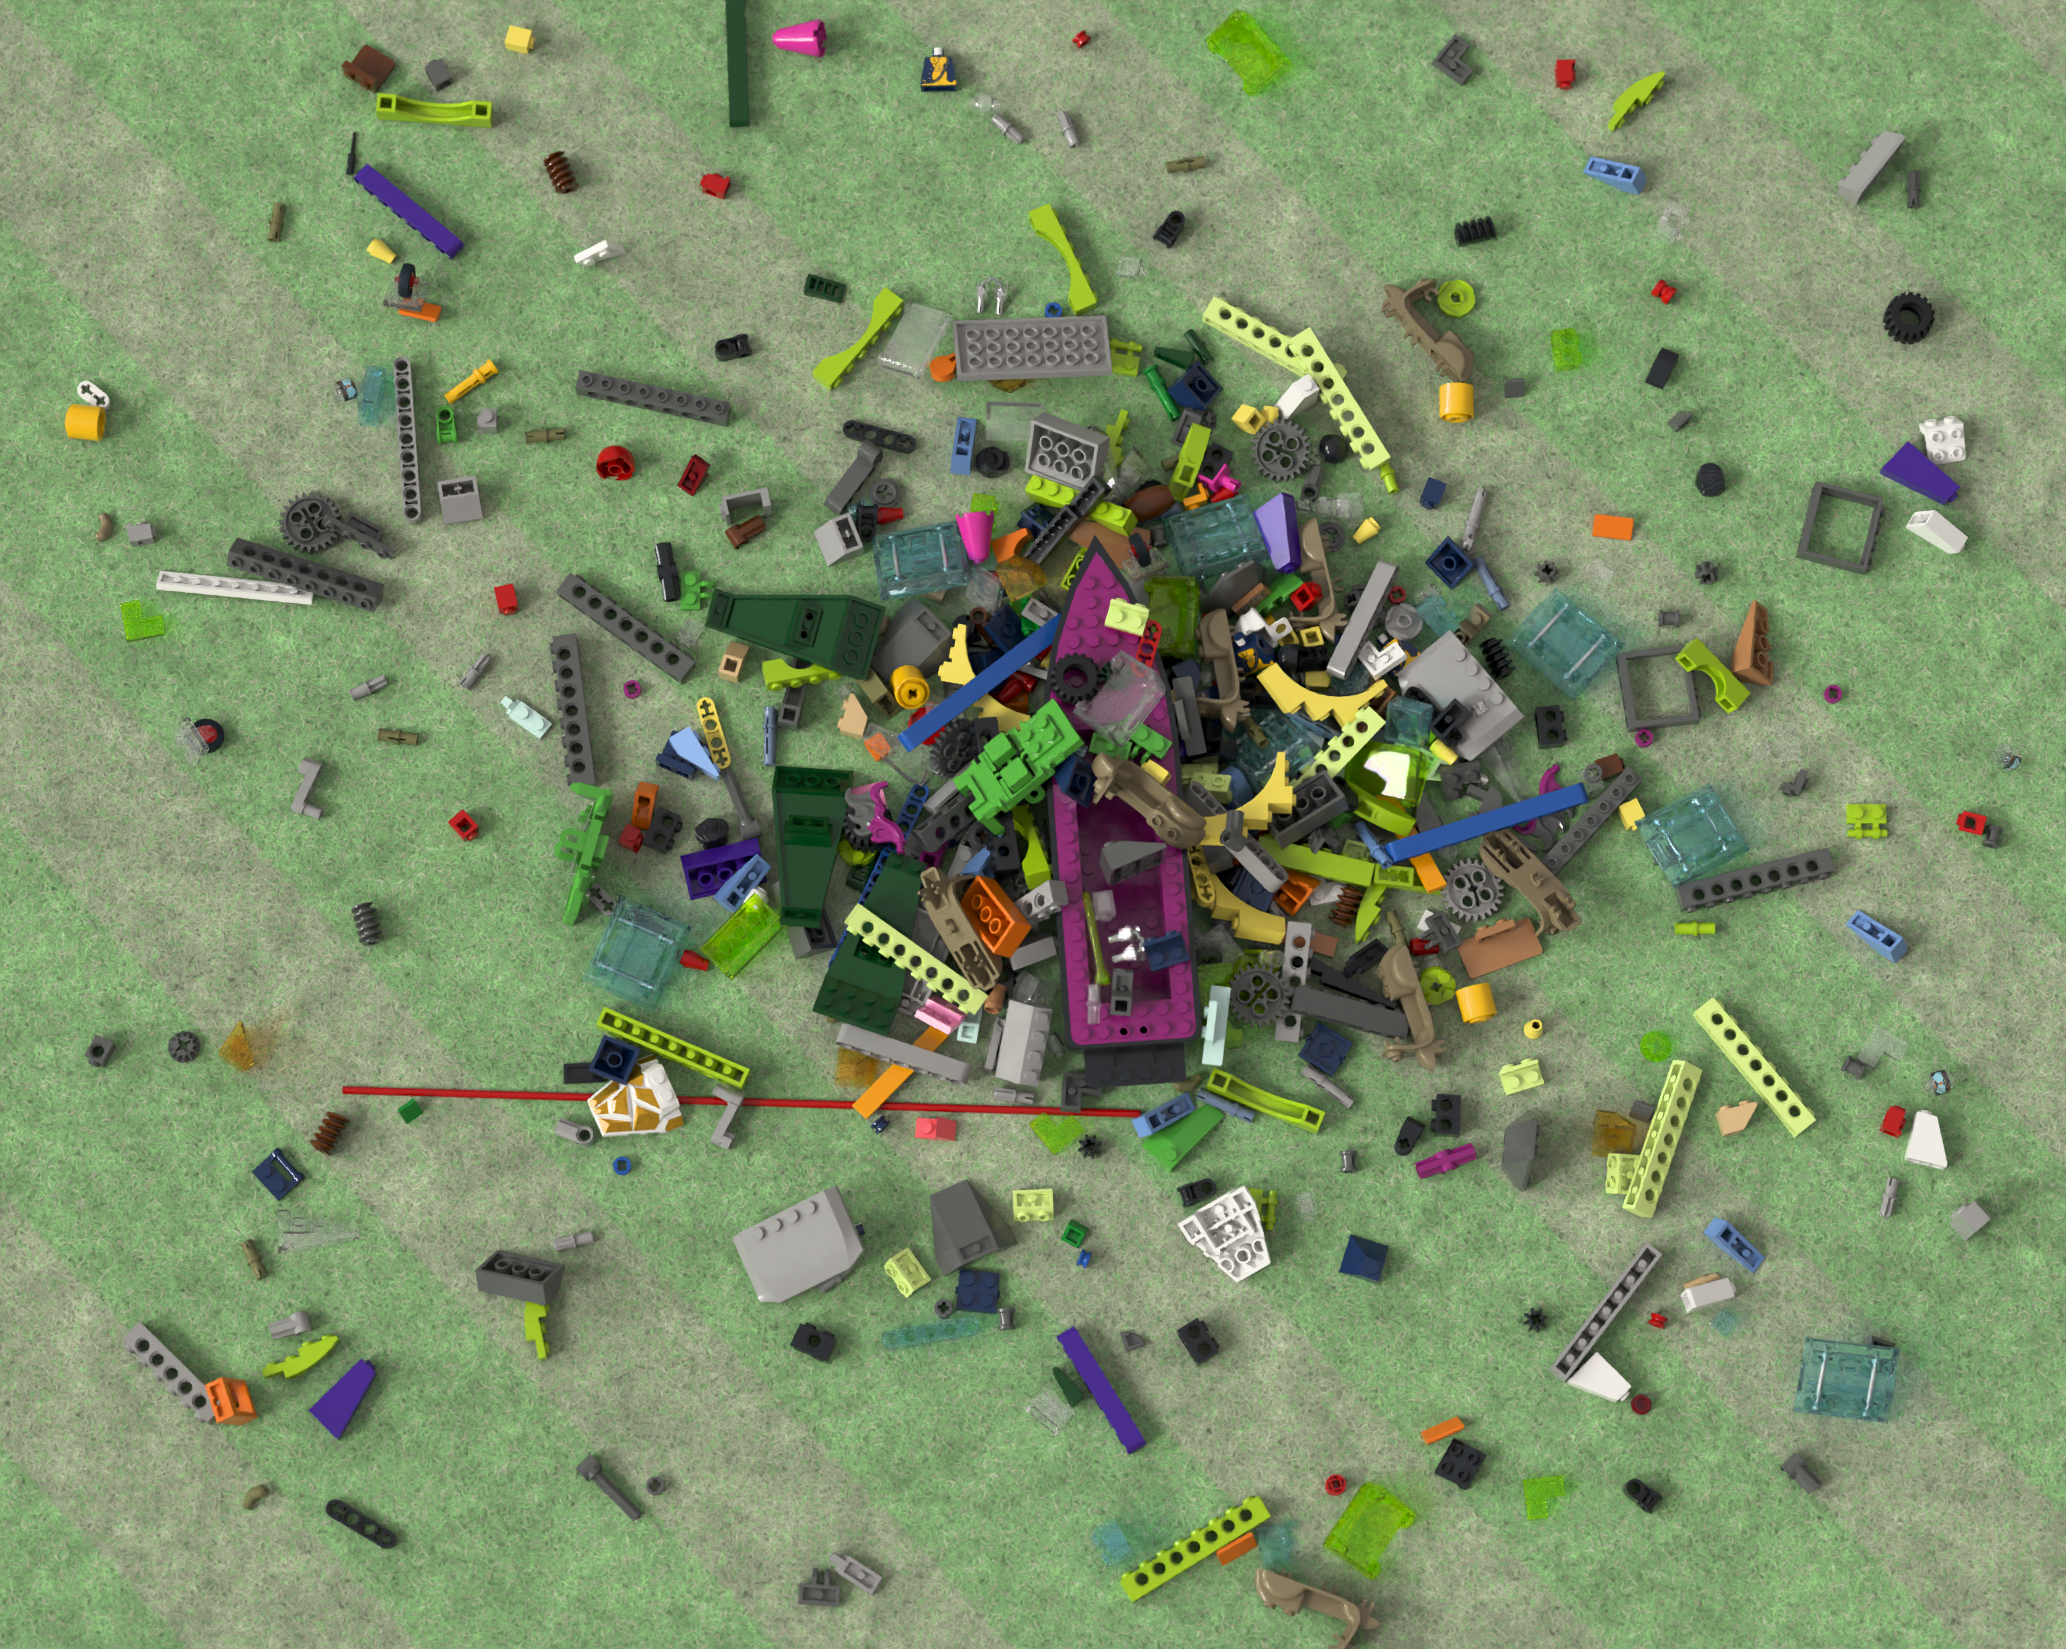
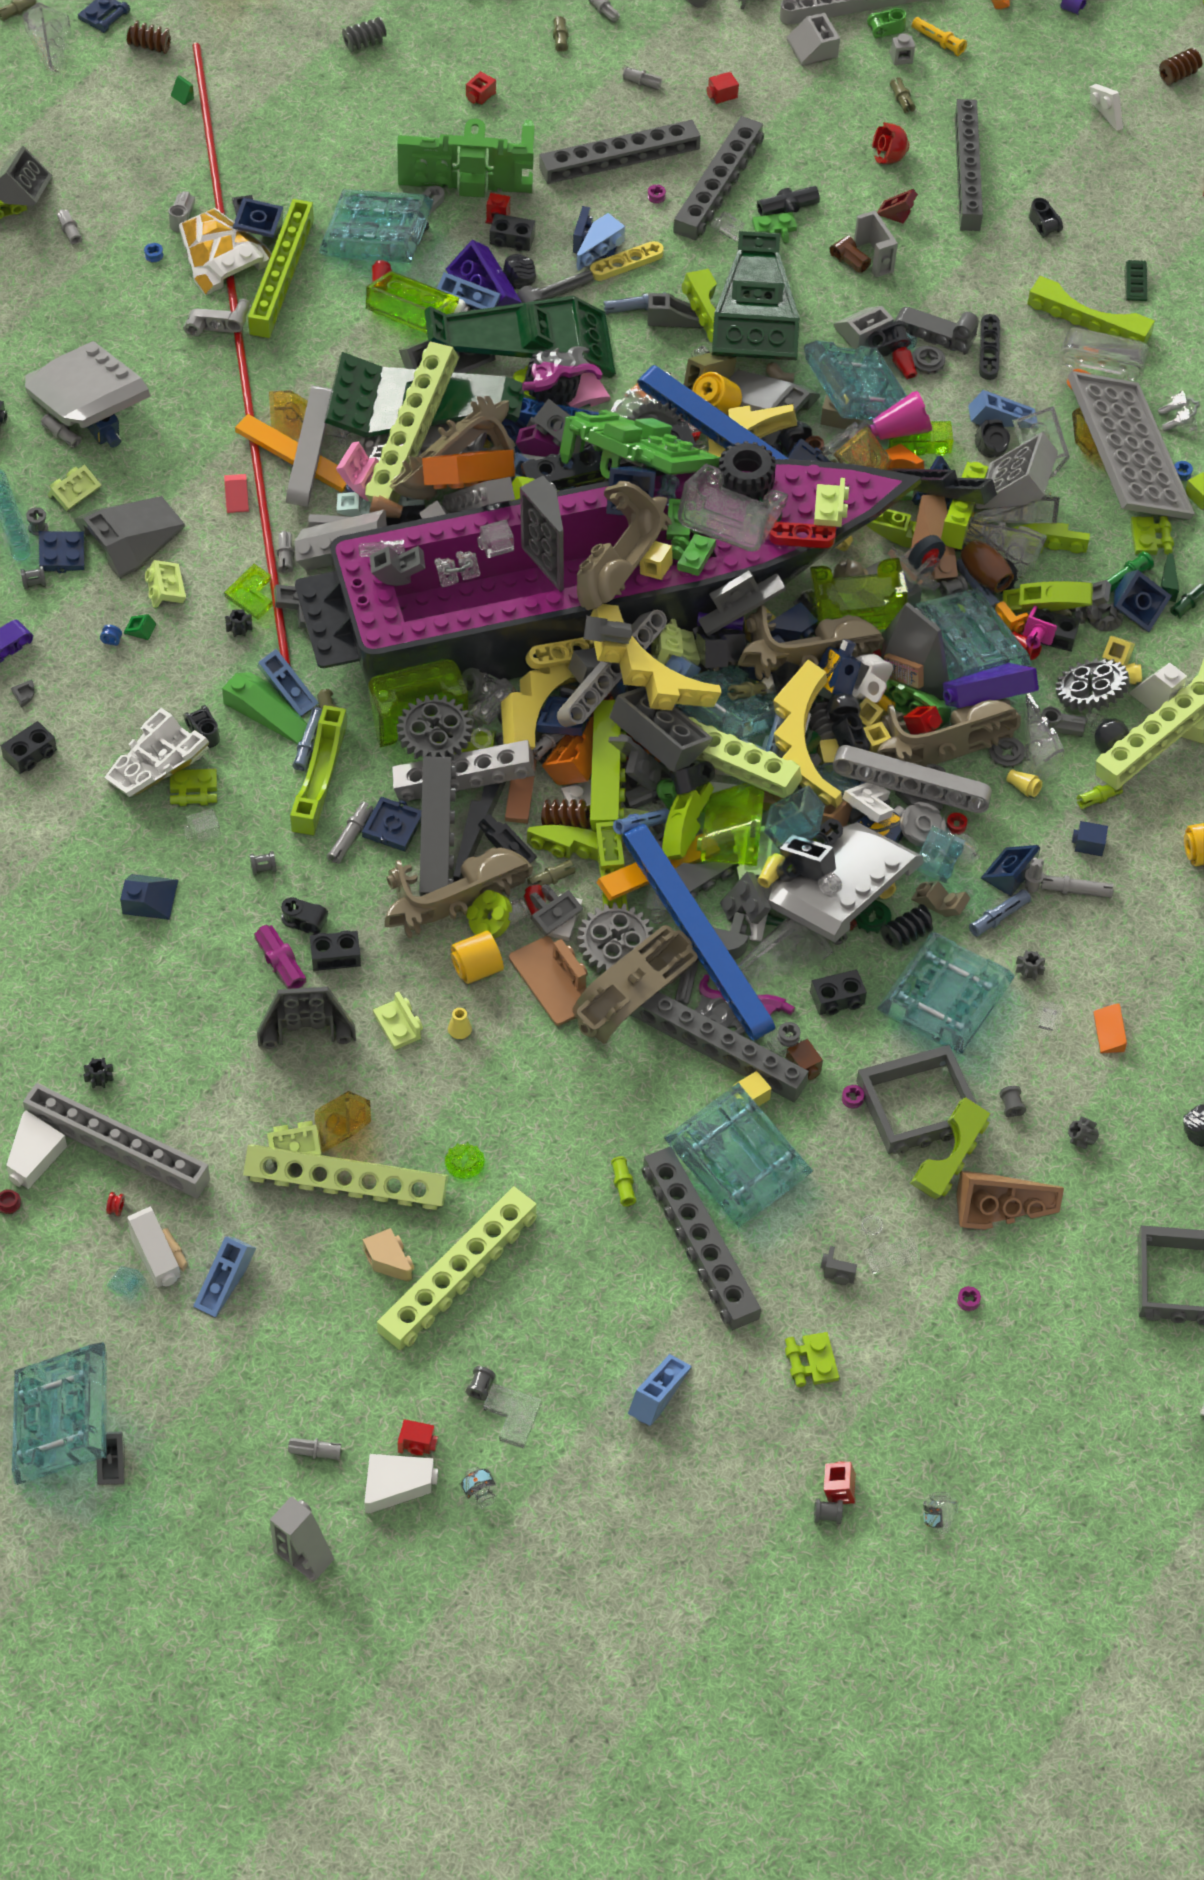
camera: 80 degrees right, 20 degrees down
(526, 717) = (606, 121): light aqua hinge -> none
(644, 805) = (540, 209): orange arch -> none
(733, 662) = (704, 256): tan slope -> none
(854, 719) = (673, 360): tan slope -> none
(880, 1124) = (232, 444): dark blue bush -> none
(1102, 976) = (444, 543): clear neon green piece -> none
(1166, 951) = (457, 600): dark blue bracket -> none
(1215, 1029) = (387, 677): light aqua bracket -> none
(1641, 1111) = (379, 1151): dark grey slope -> none

